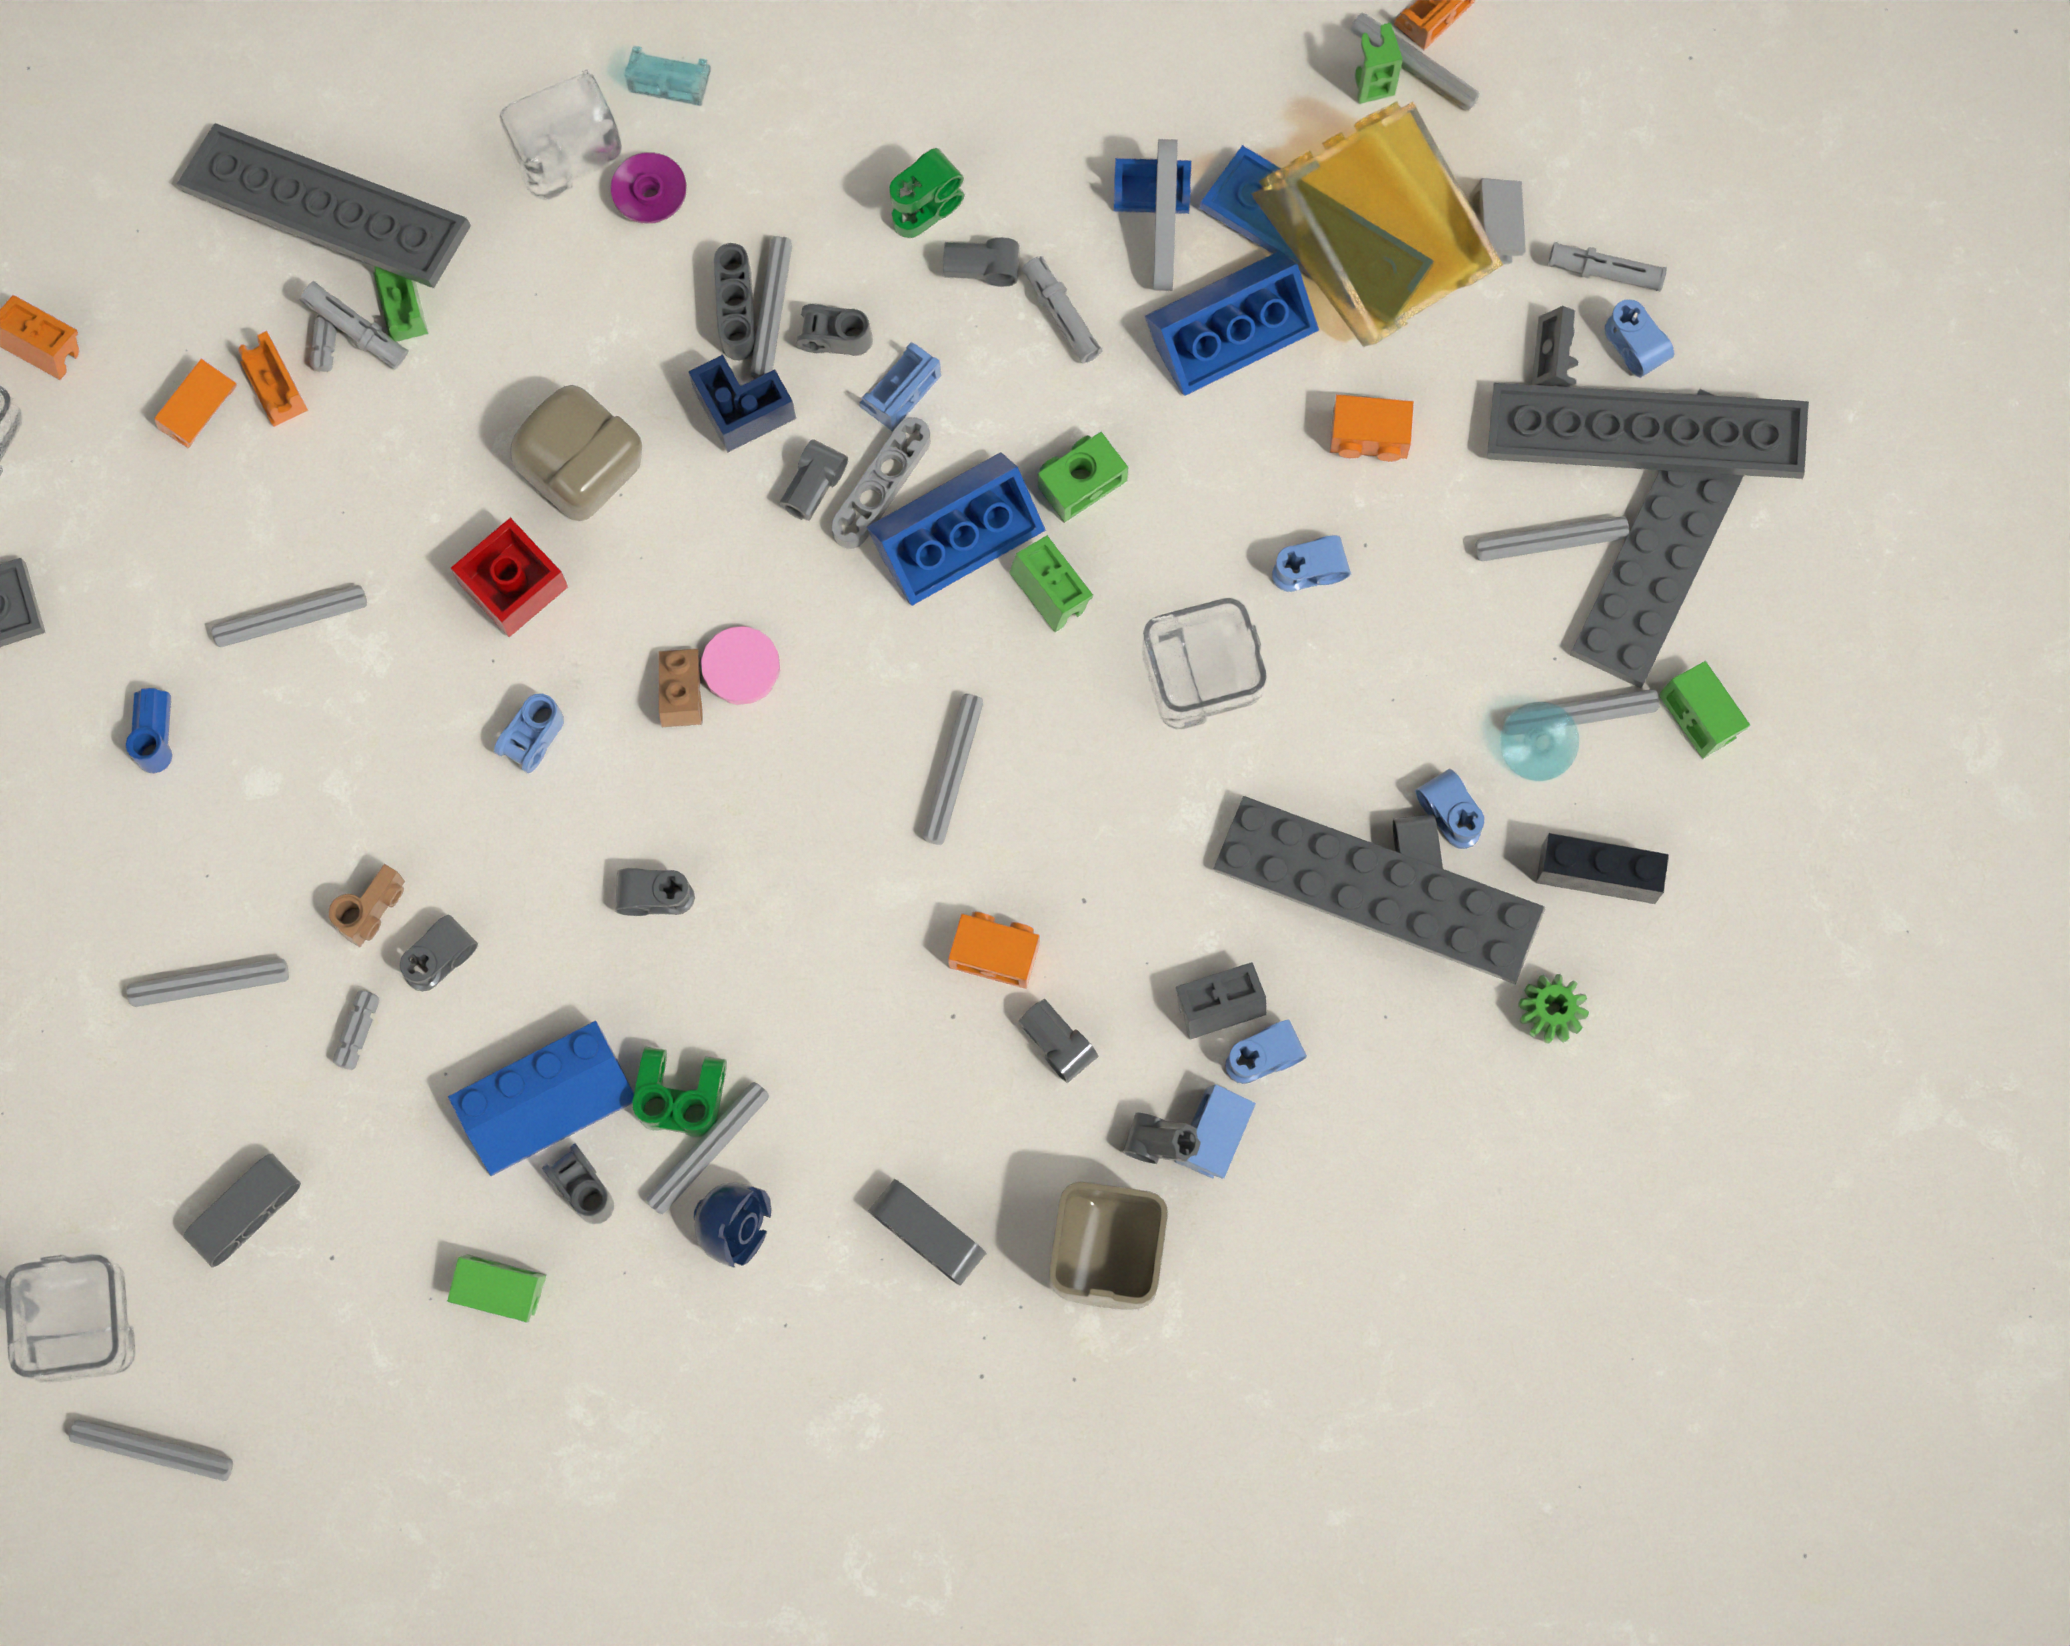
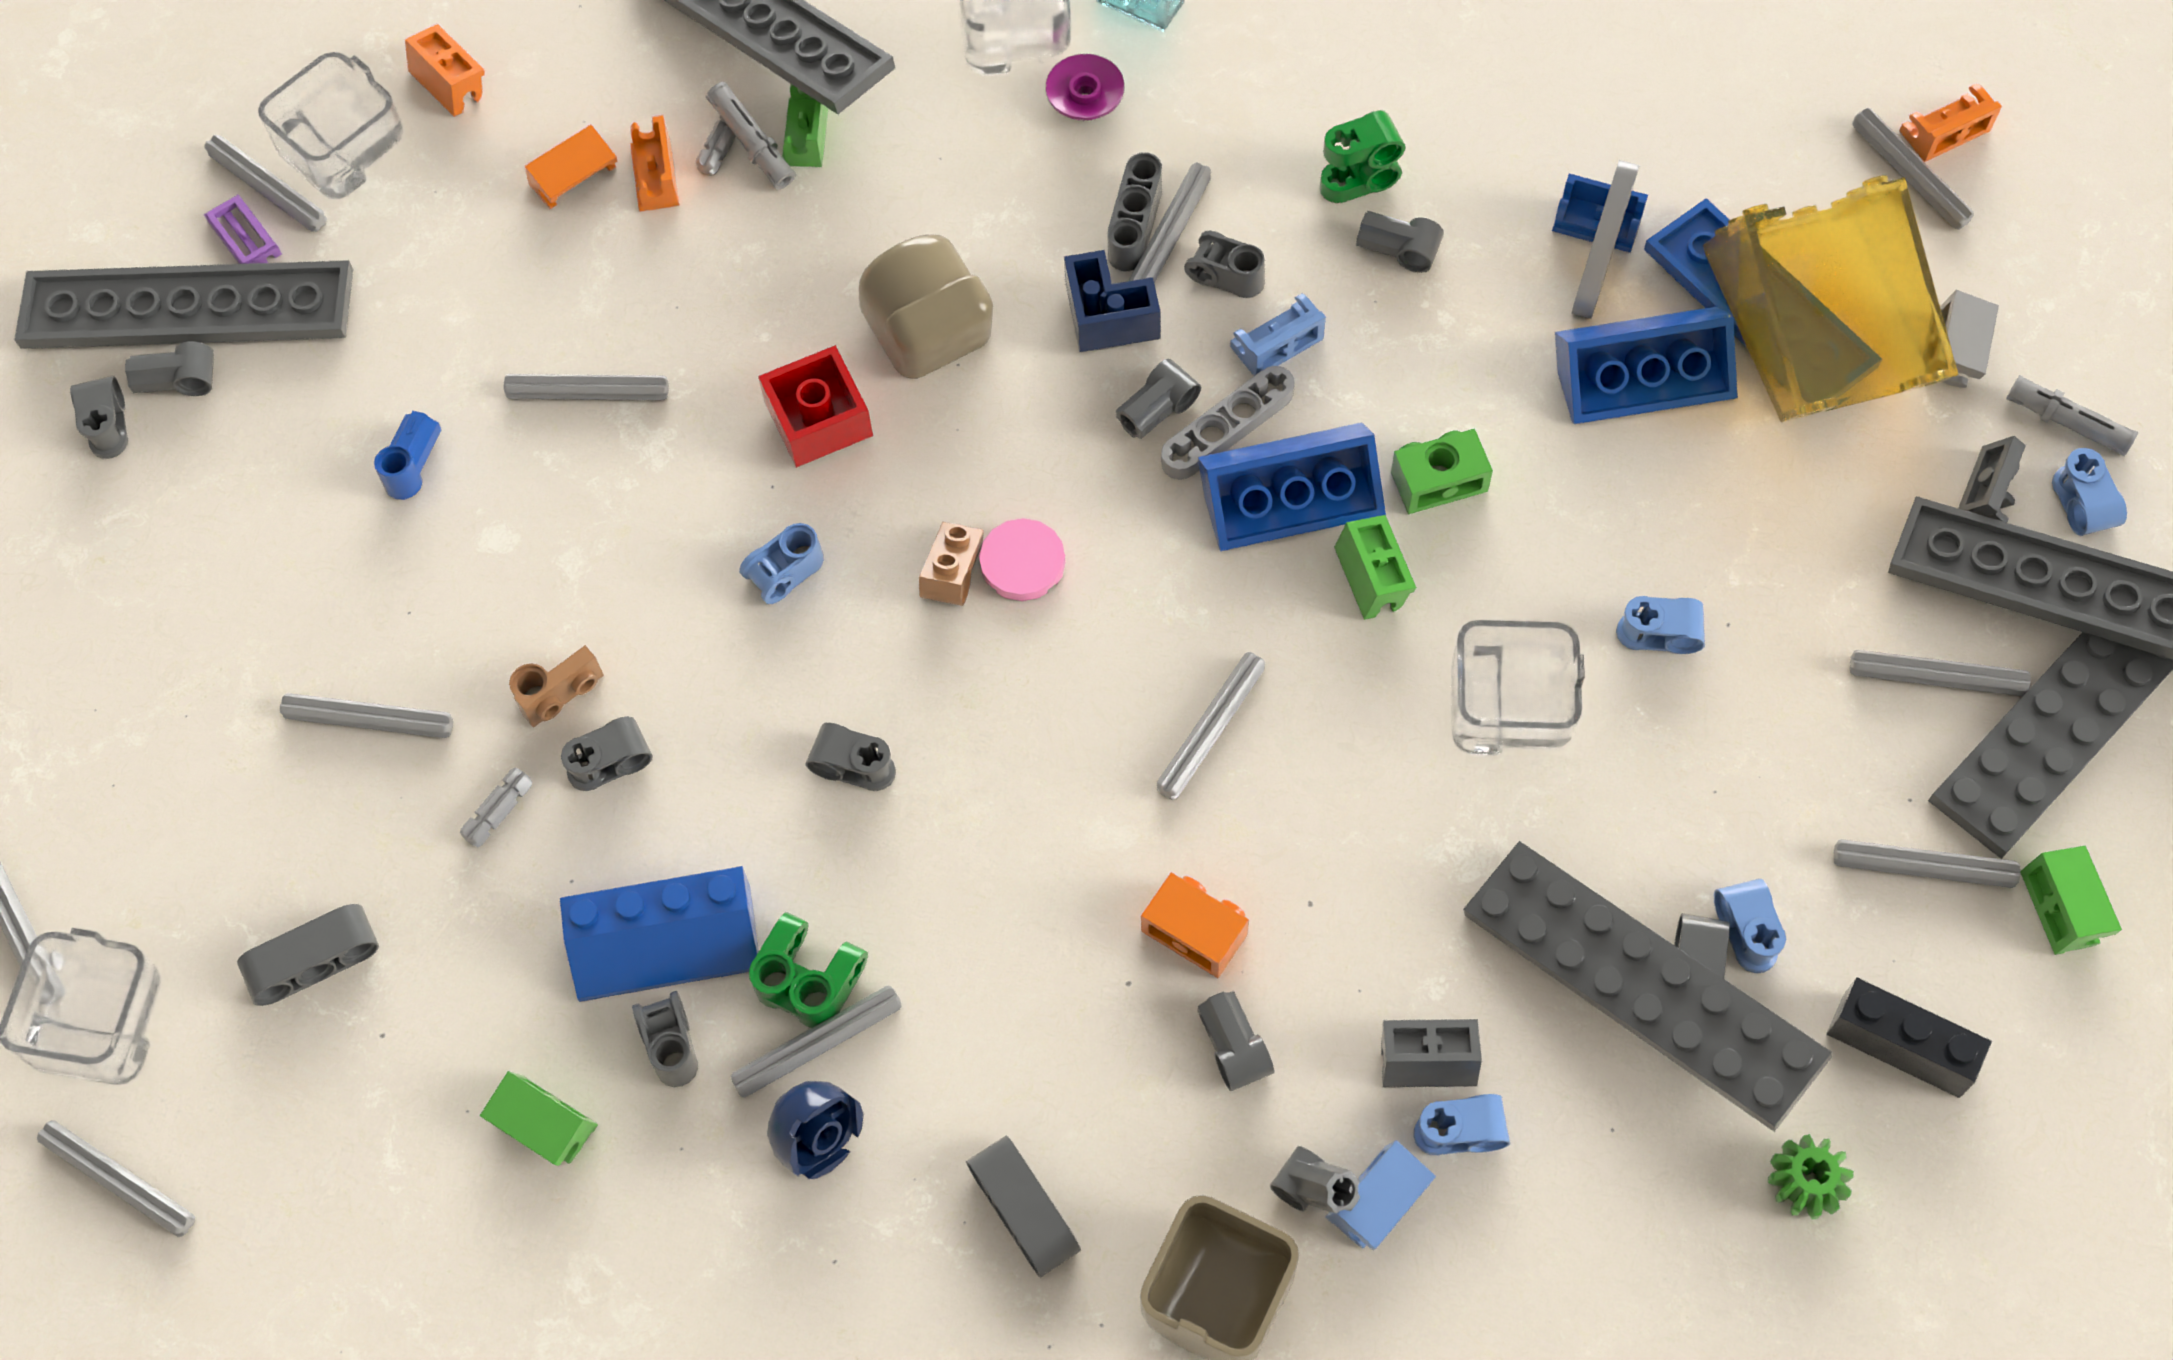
camera: 20 degrees right, 10 degrees down
(1053, 296) = (1464, 291): light grey pin -> none
(1371, 427) = (1768, 505): orange brick -> none
(1380, 67) = (1875, 152): bright green hinge -> none
(1520, 738) = (1847, 880): clear light blue dish -> none

